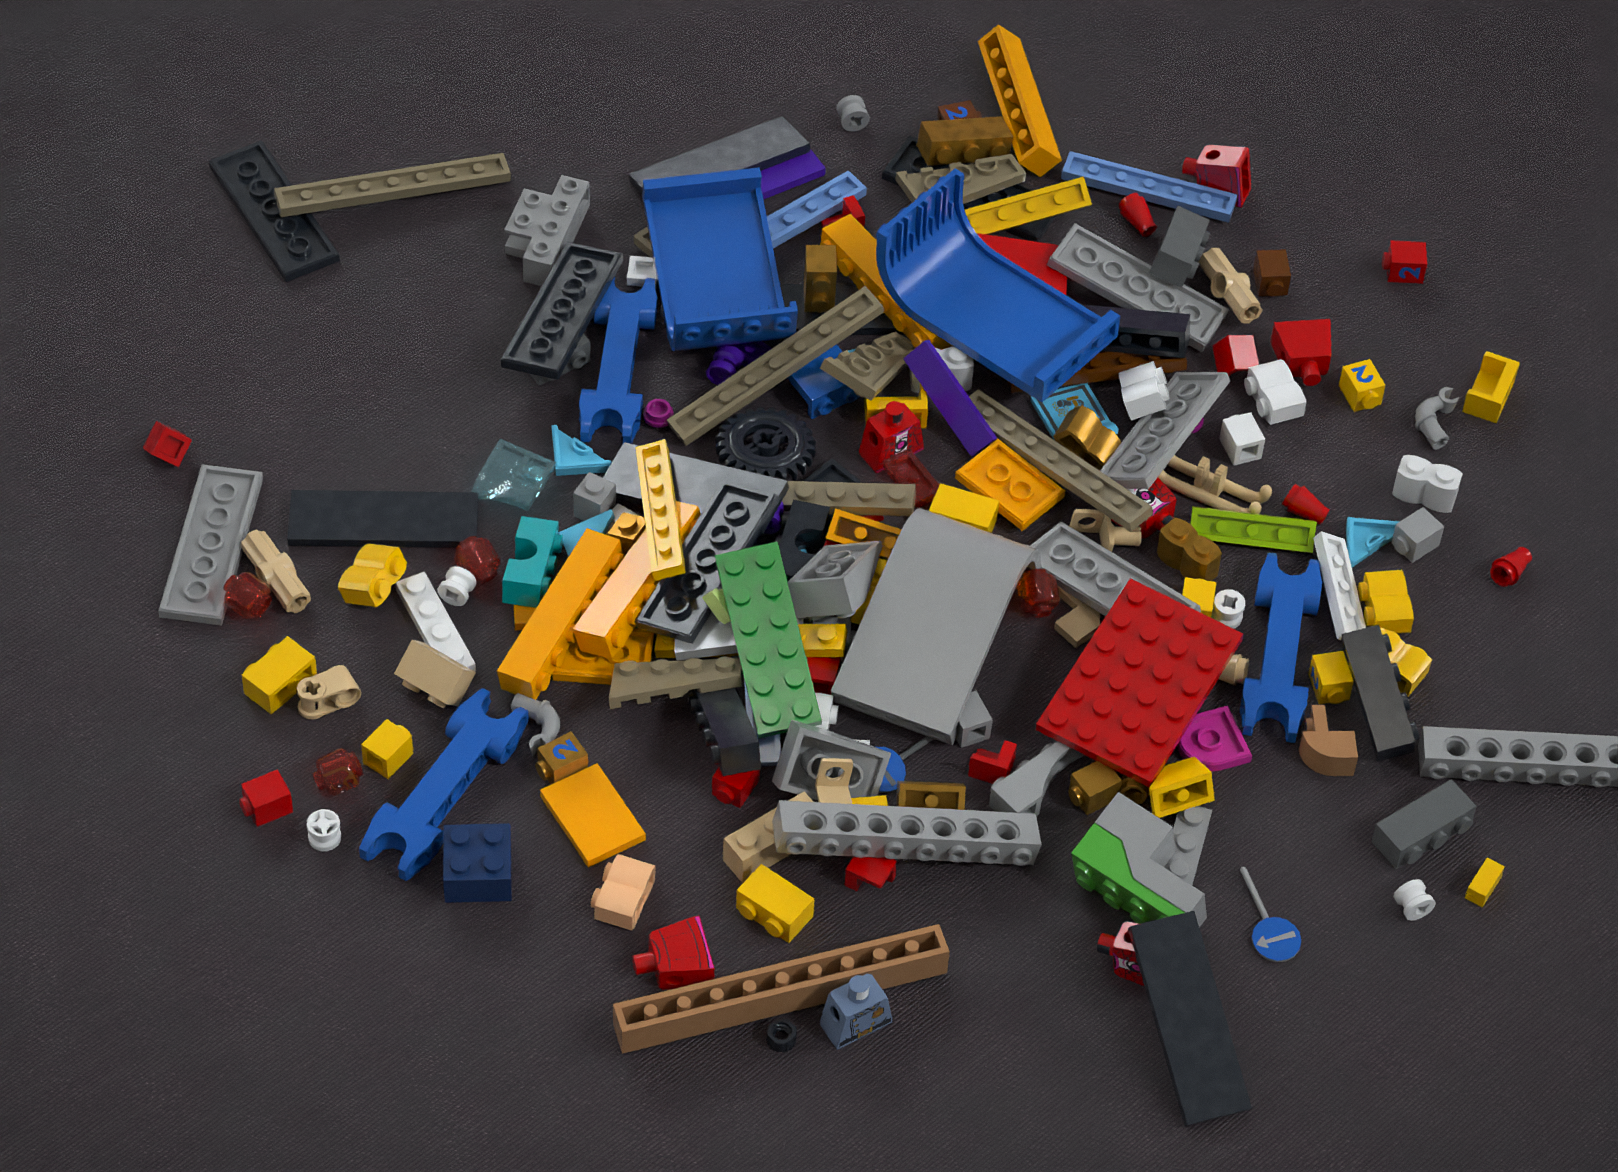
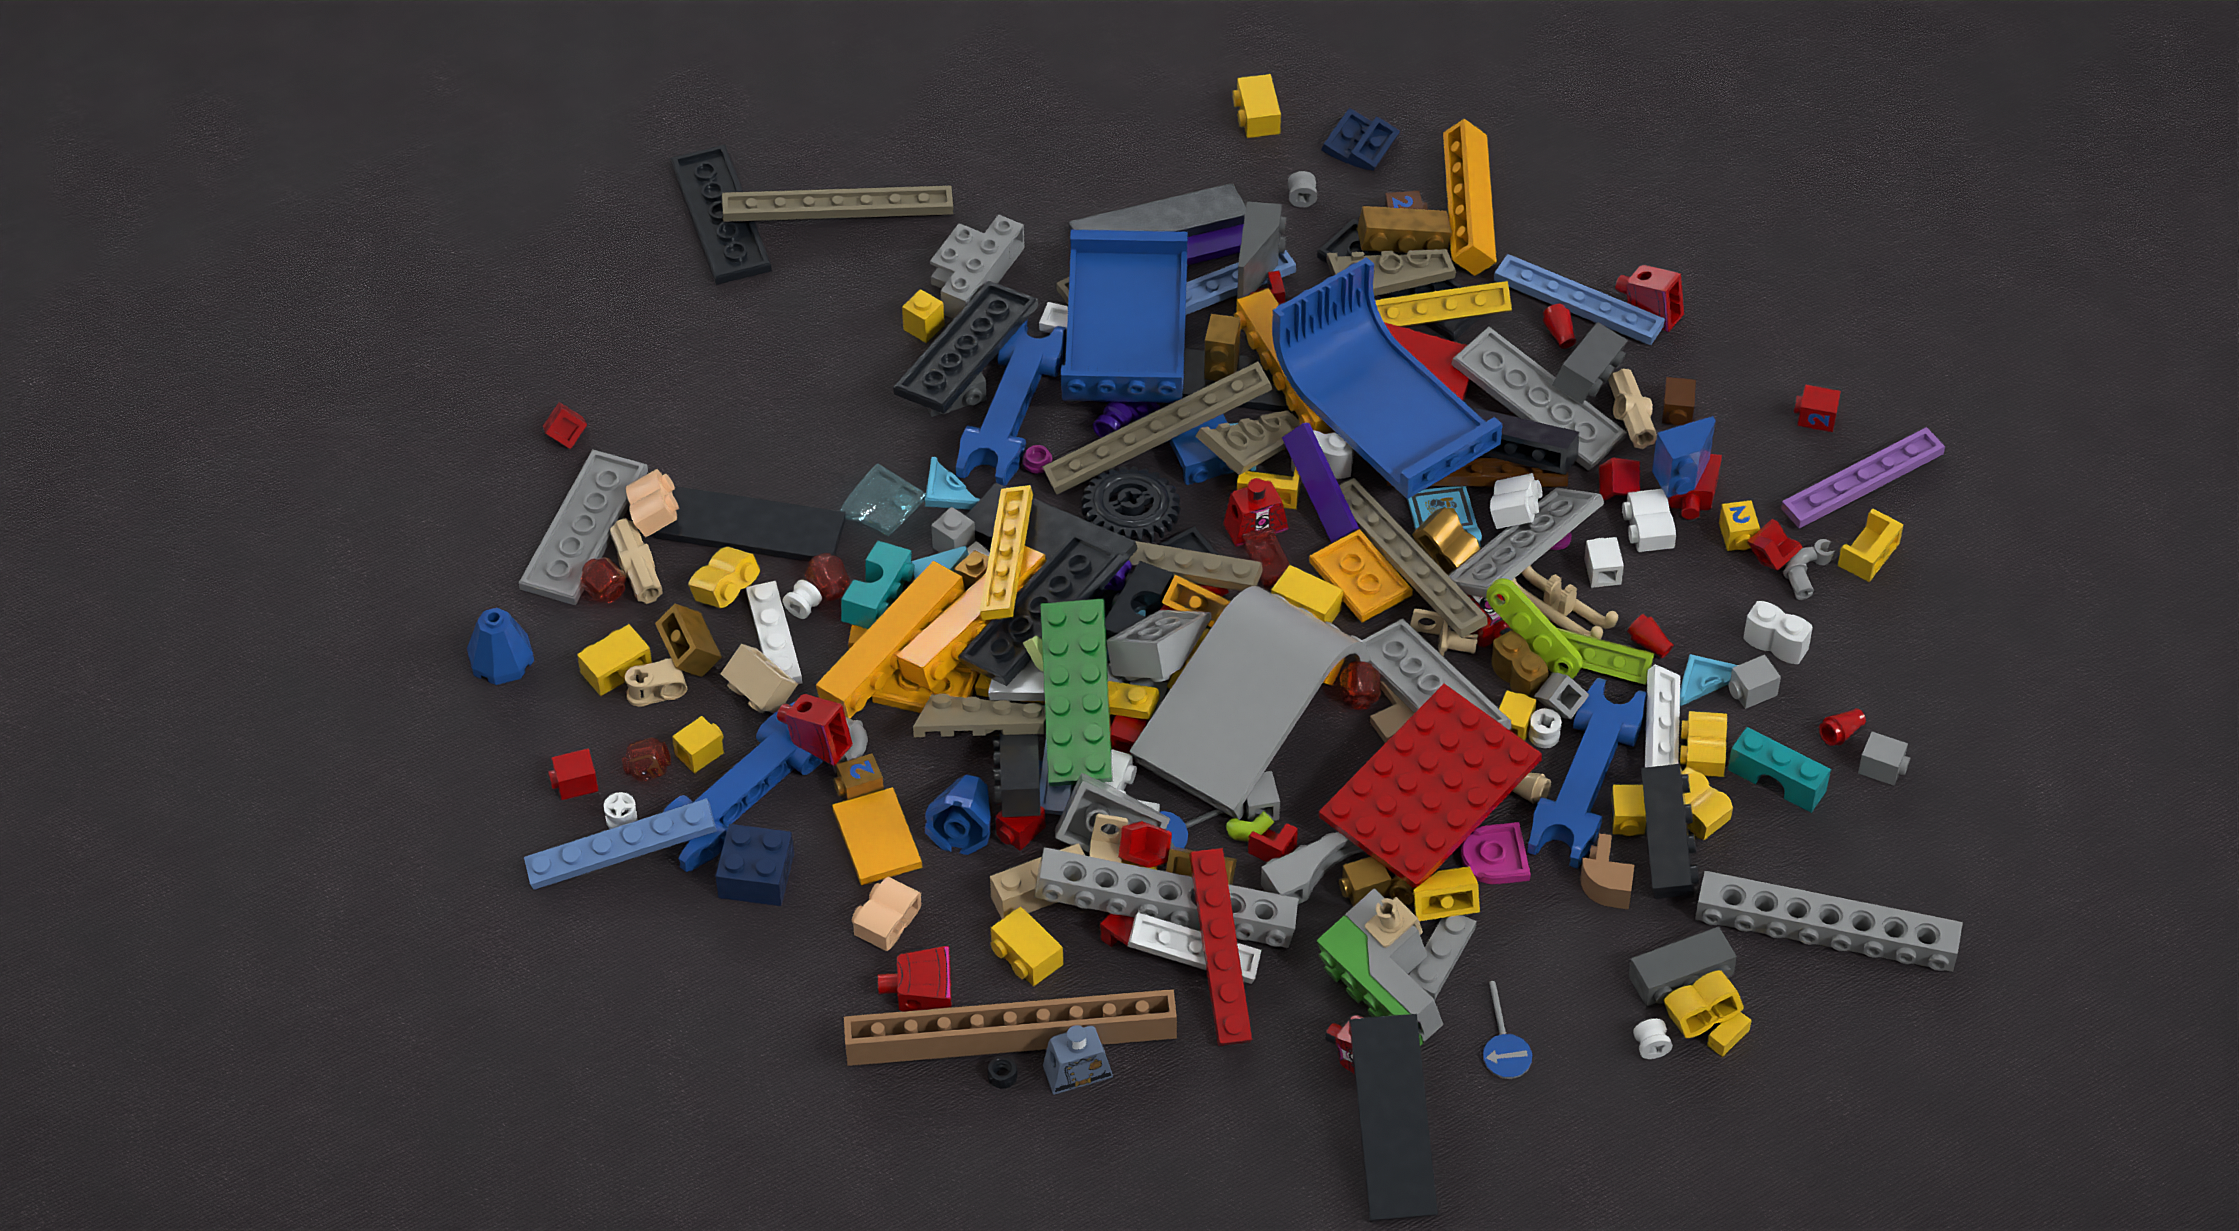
camera: 15 degrees right, 0 degrees up
(156, 680) = (499, 648): none -> blue cone
(280, 509) = (652, 502): none -> light nougat brick
(333, 862) = (620, 844): none -> medium blue plate
(352, 644) = (688, 640): none -> pearl gold brick
(508, 285) = (923, 316): none -> yellow brick
(512, 712) = (817, 727): none -> red torso
(676, 782) = (960, 816): none -> blue cone
(788, 37) = (1258, 106): none -> yellow brick
(831, 171) = (1260, 245): none -> dark grey slope
(873, 782) = (1145, 844): none -> red panel
(895, 59) = (1360, 140): none -> dark blue slope
(945, 879) = (1183, 944): none -> white plate
(962, 753) = (1240, 830): none -> lime arm
(974, 874) = (1220, 947): none -> red plate
(1144, 823) = (1391, 921): none -> tan bracket
(1197, 510) = (1534, 627): none -> lime plate
(1239, 573) = (1561, 695): none -> light grey brick
(1297, 324) = (1682, 456): none -> blue slope
(1400, 402) = (1773, 546): none -> red panel
(1456, 857) = (1704, 1003): none -> yellow brick
(1465, 323) = (1862, 477): none -> medium lavender plate
(1486, 619) = (1800, 776): none -> teal arch
(1560, 592) = (1884, 758): none -> light grey brick

